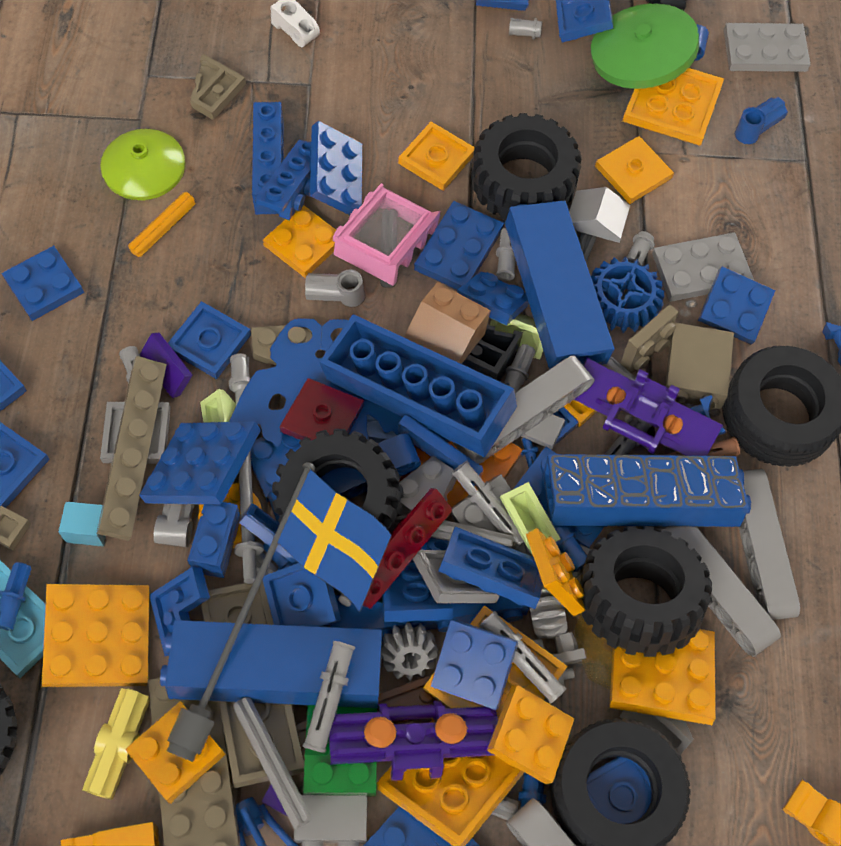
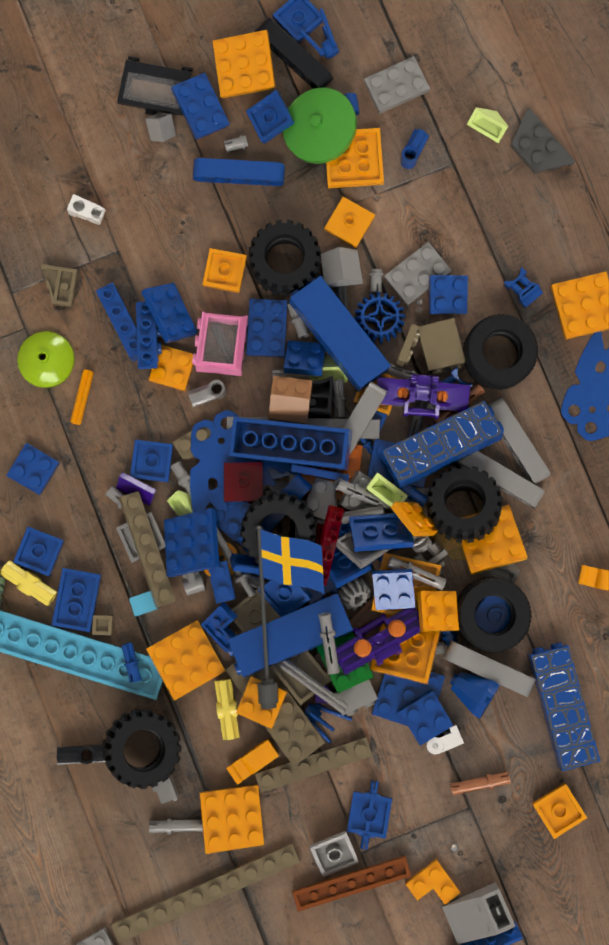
camera: 20 degrees left, 20 degrees up
(513, 57) = (238, 172): none -> blue beam

